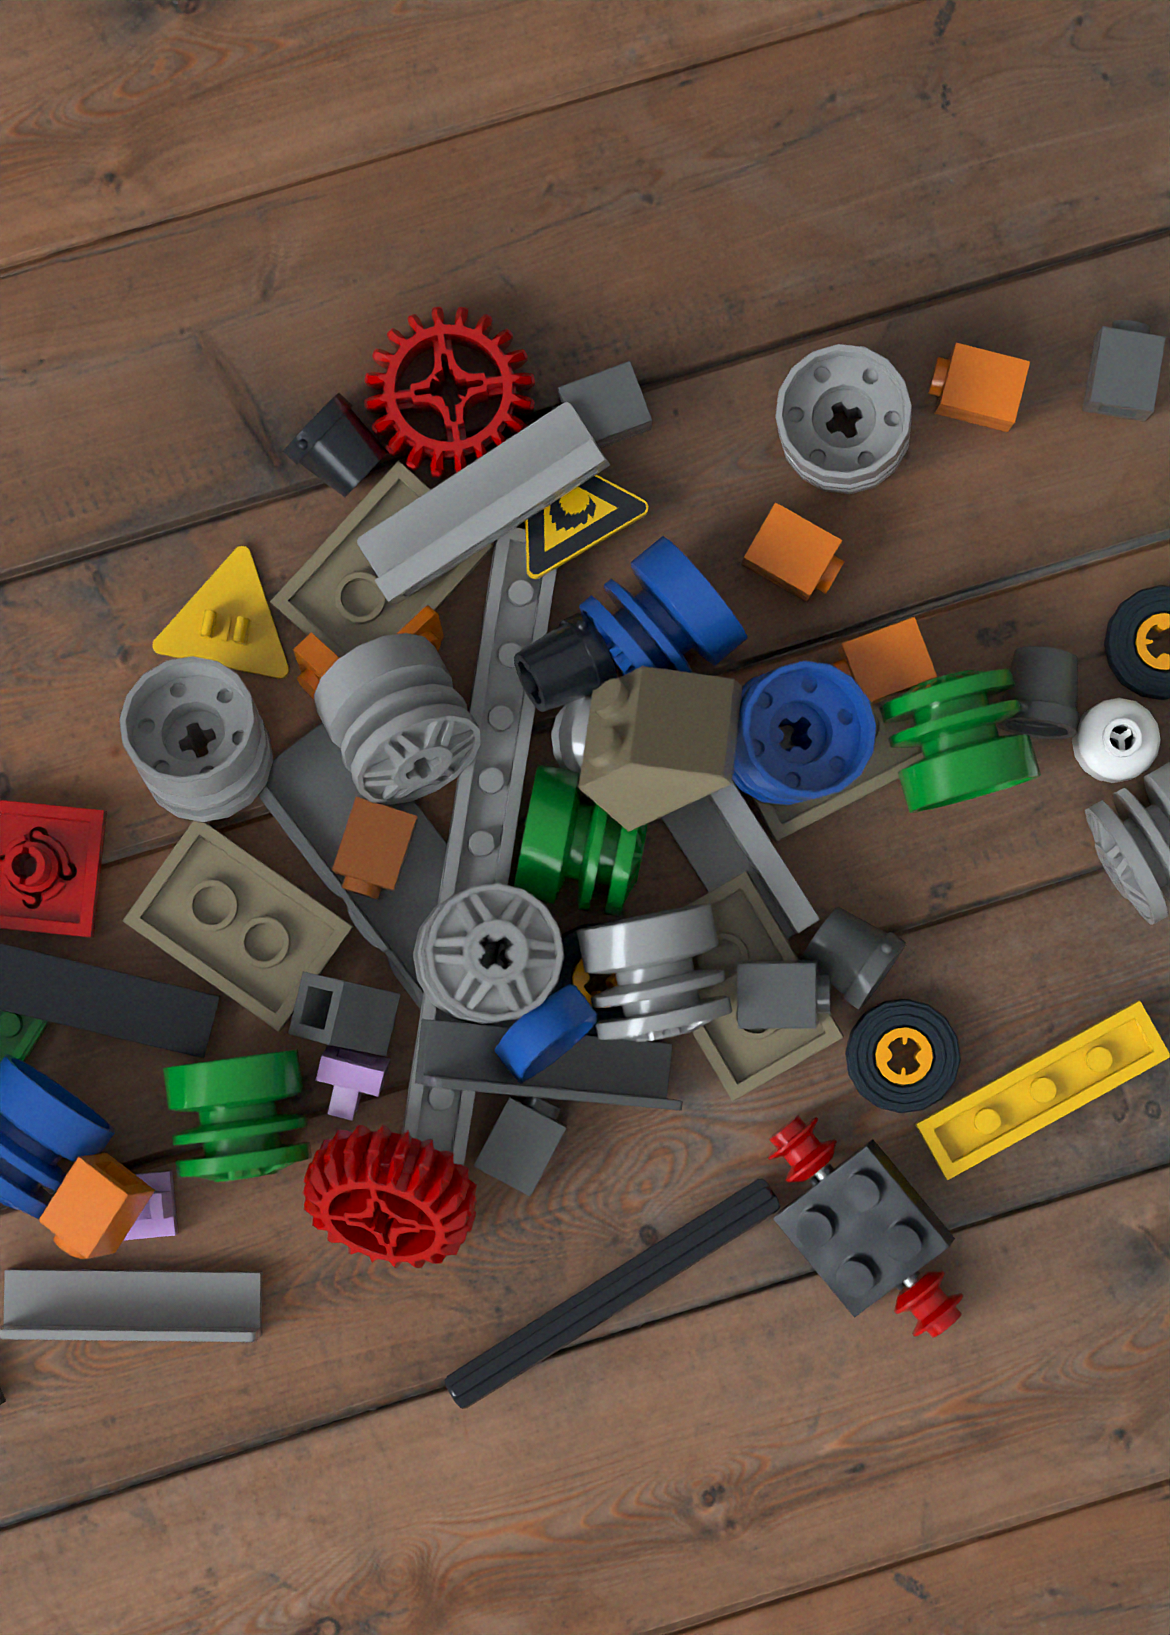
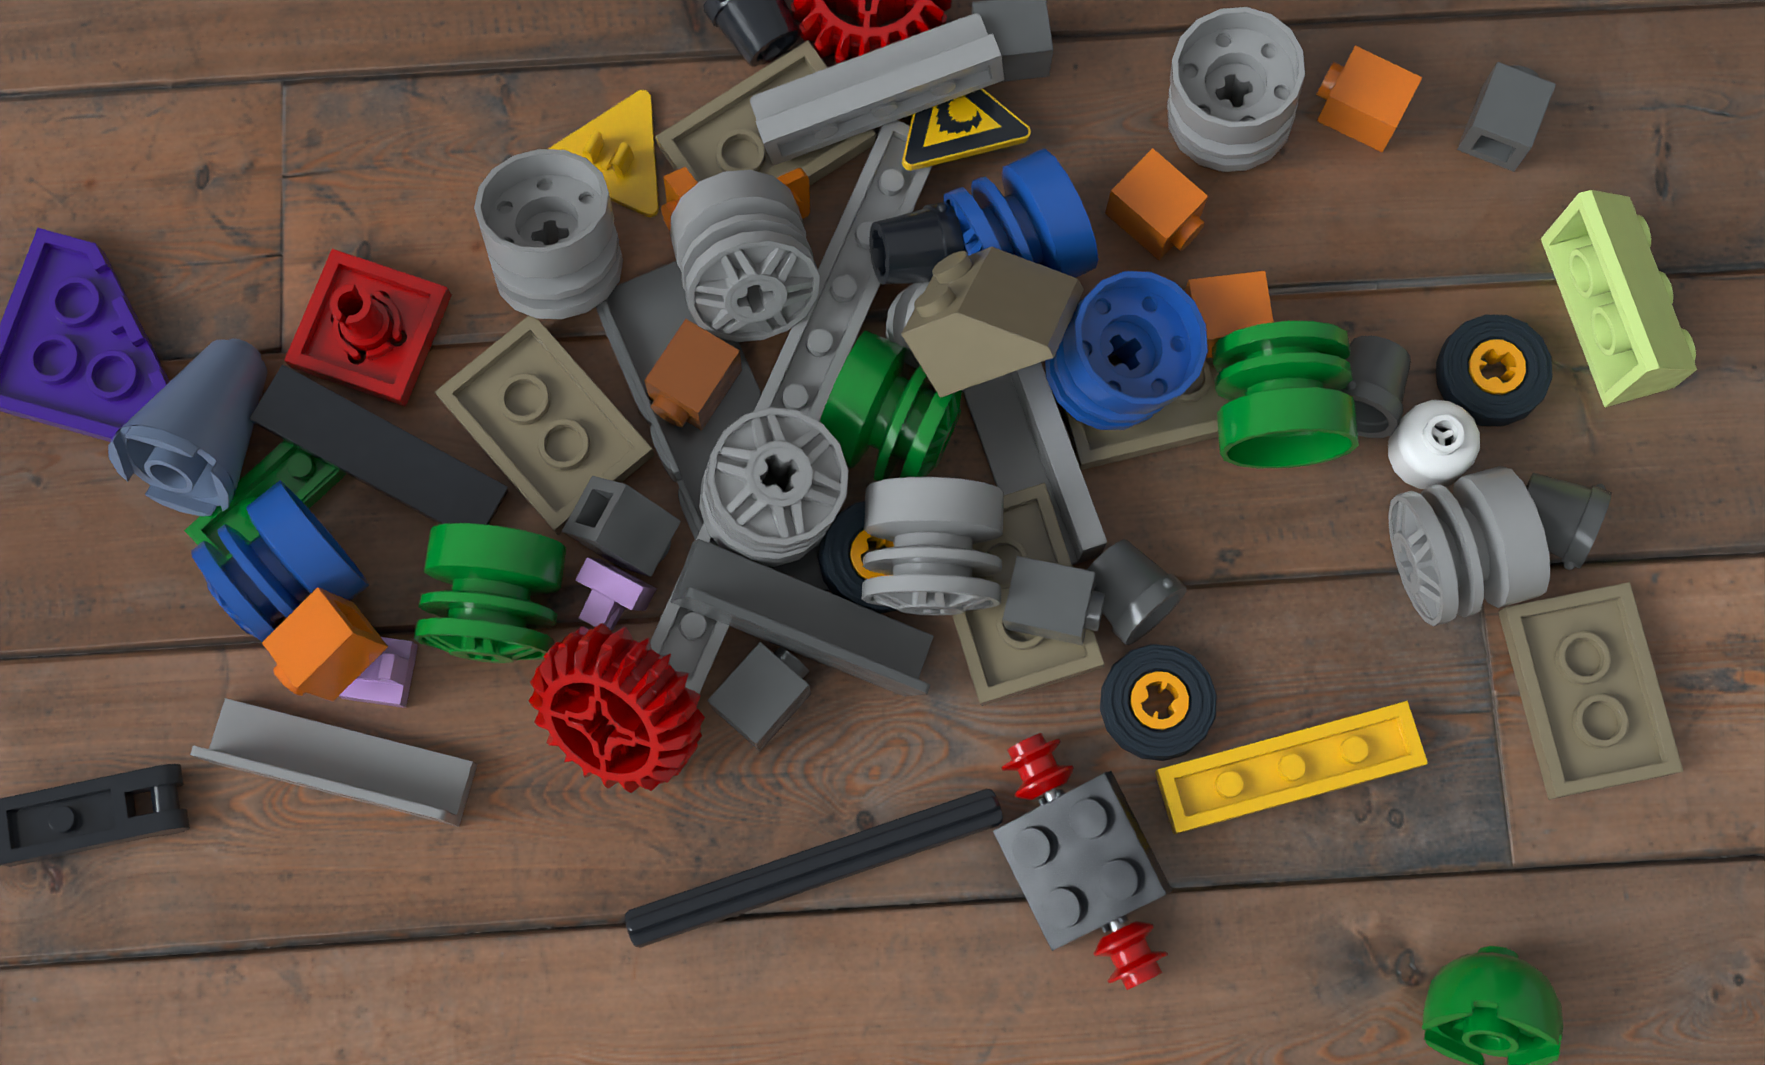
camera: 15 degrees right, 10 degrees down
(546, 1033) = (811, 579): blue hat -> none

